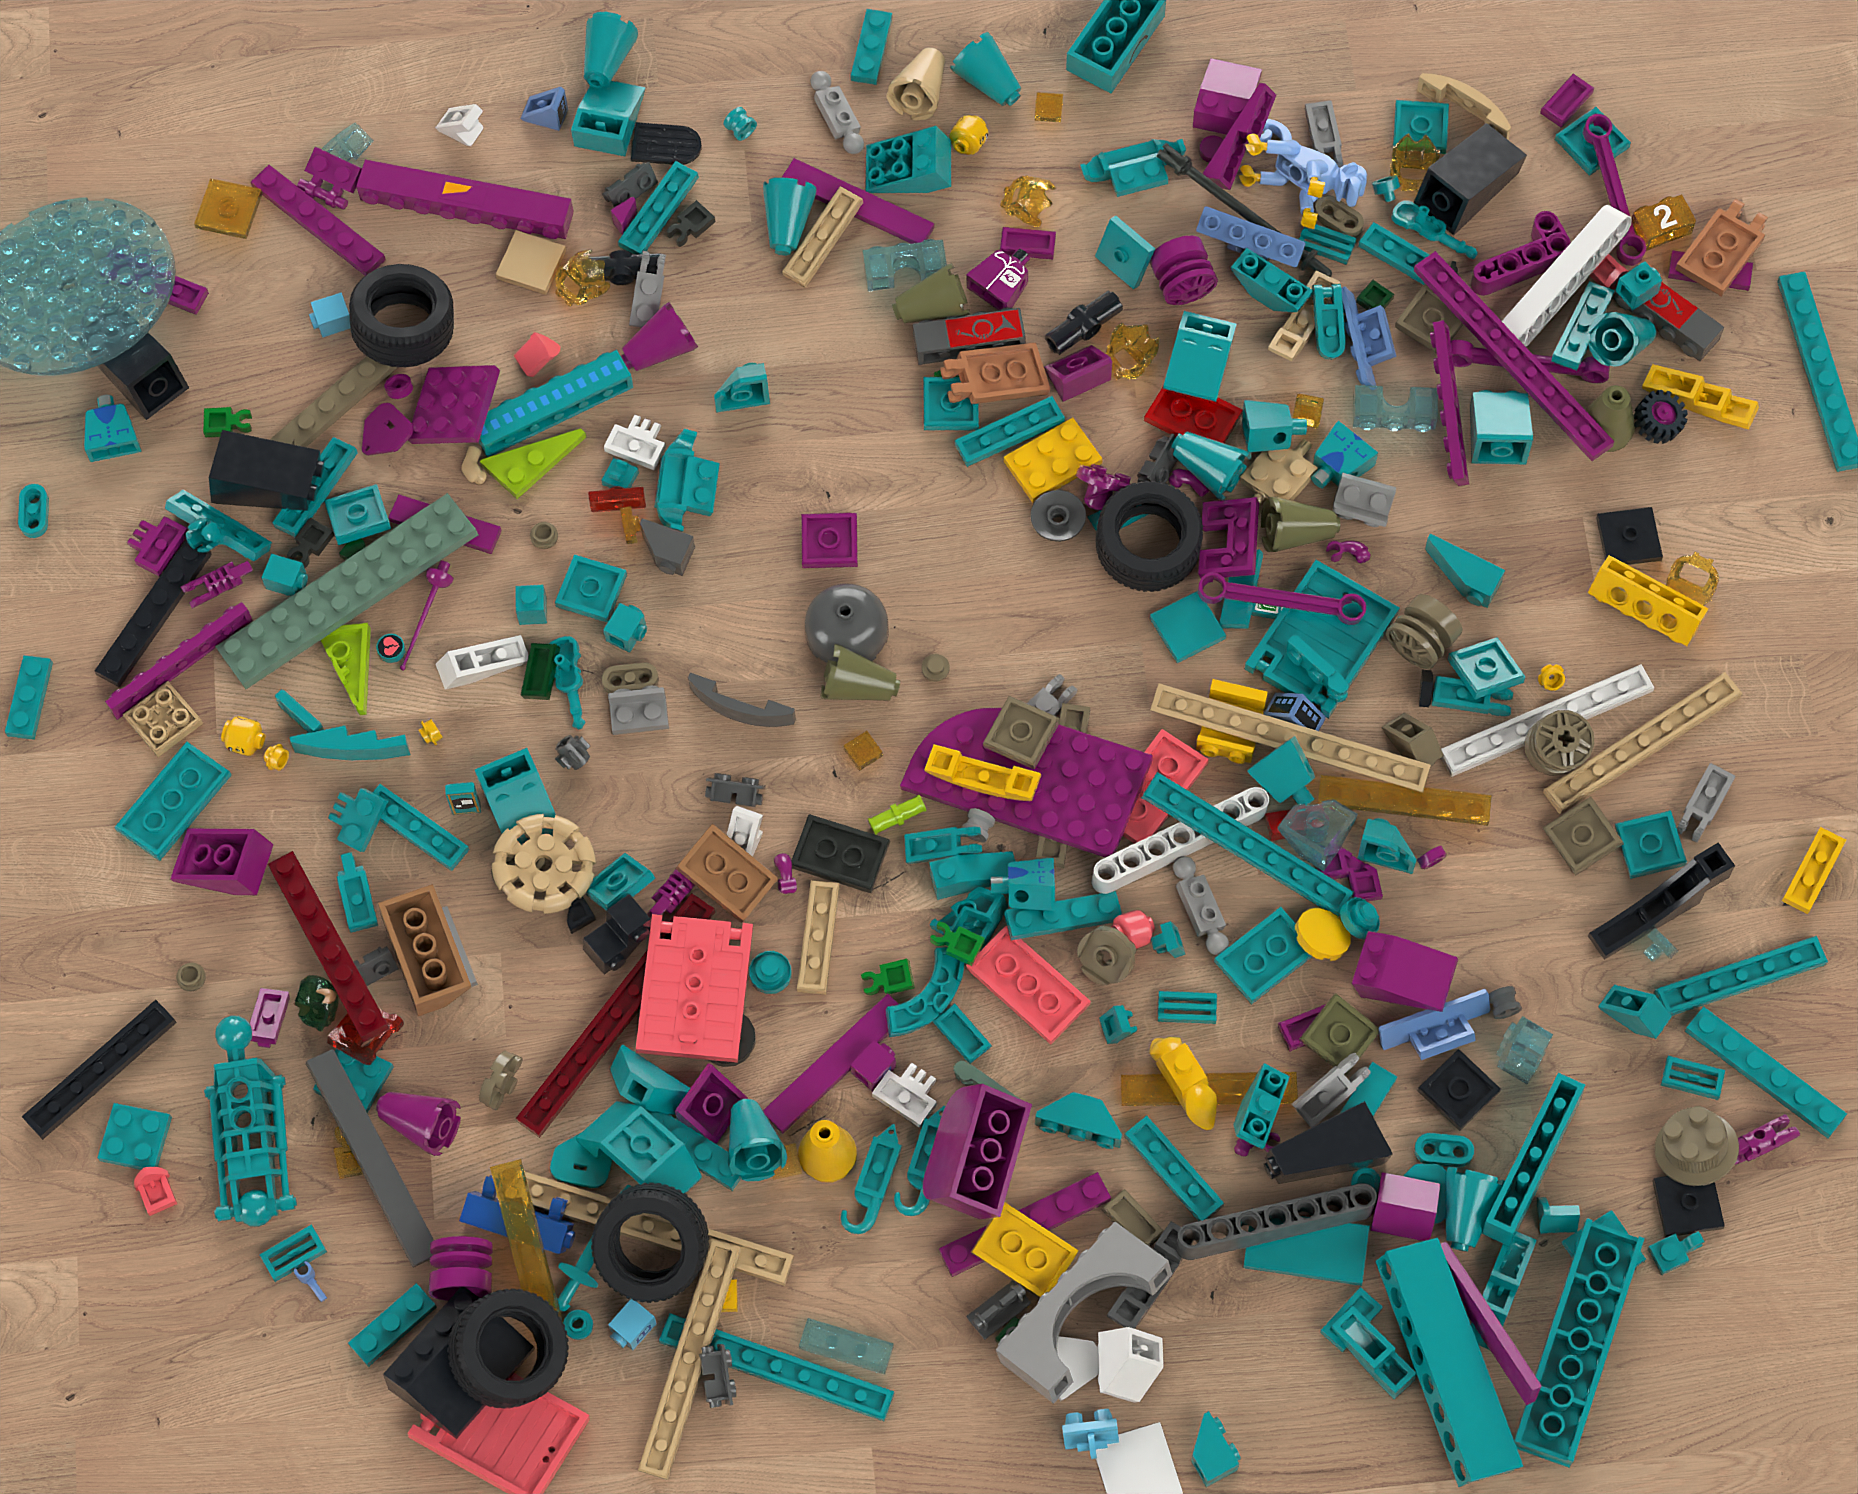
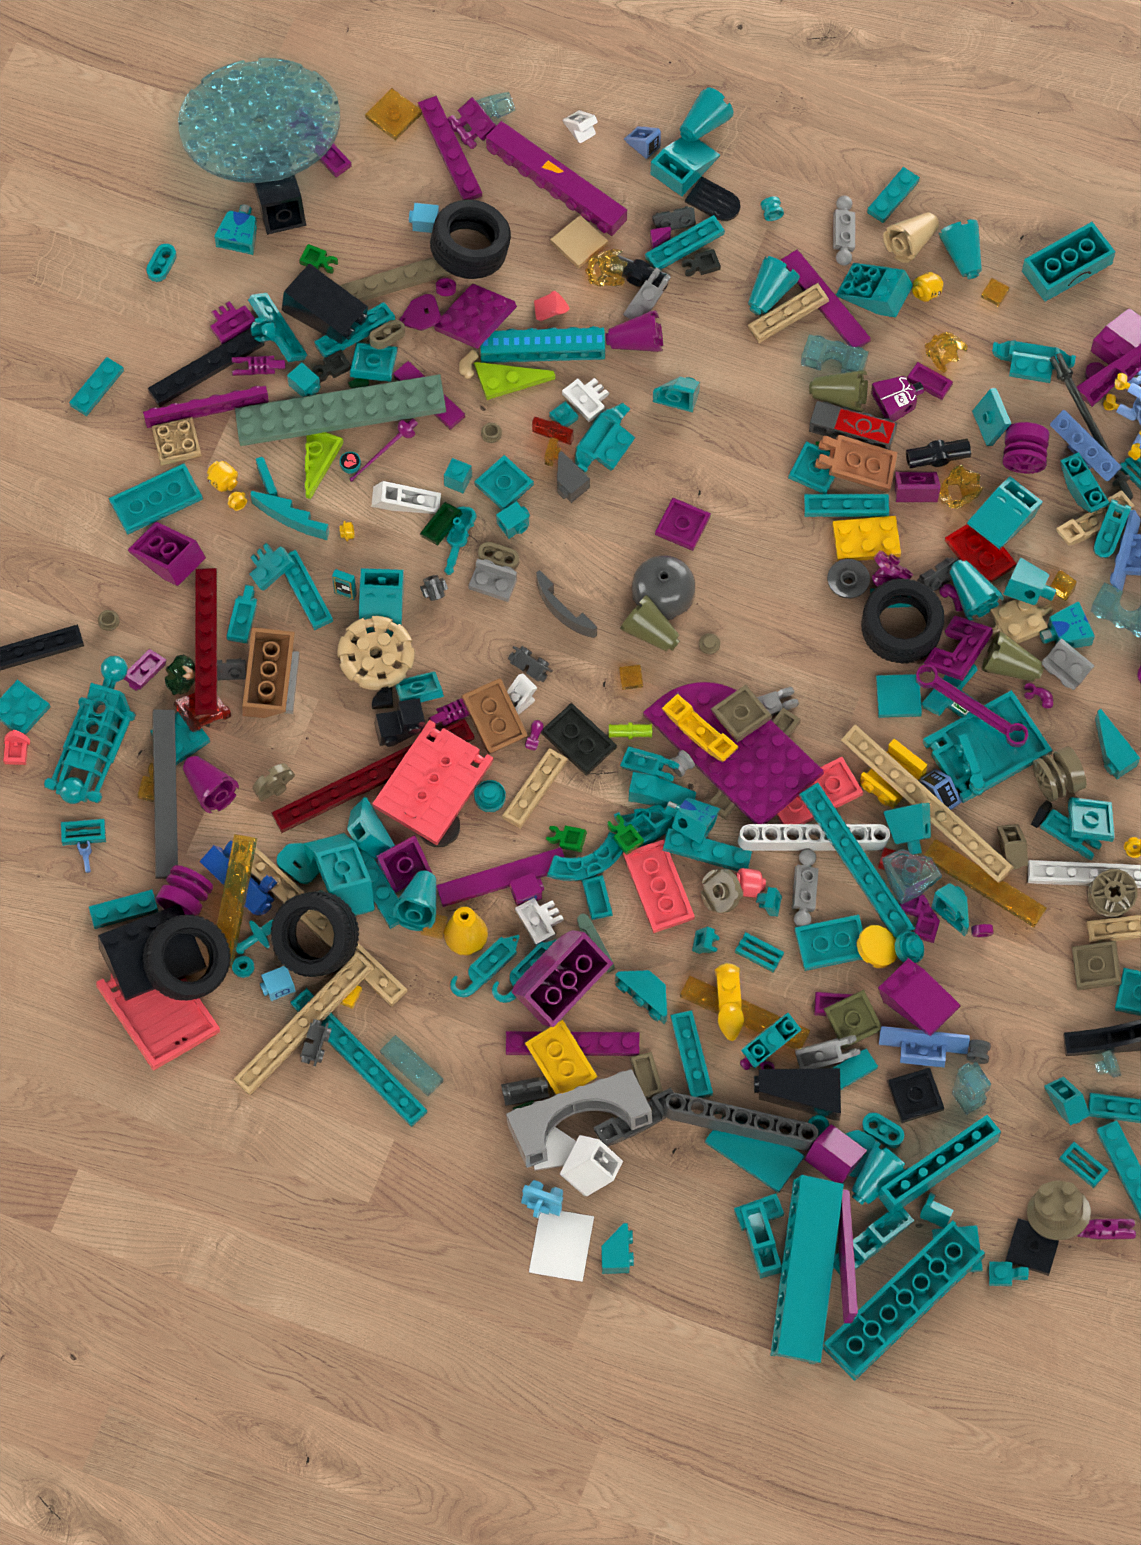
camera: 25 degrees right, 0 degrees up
(357, 474) = (387, 334): none -> dark tan plate

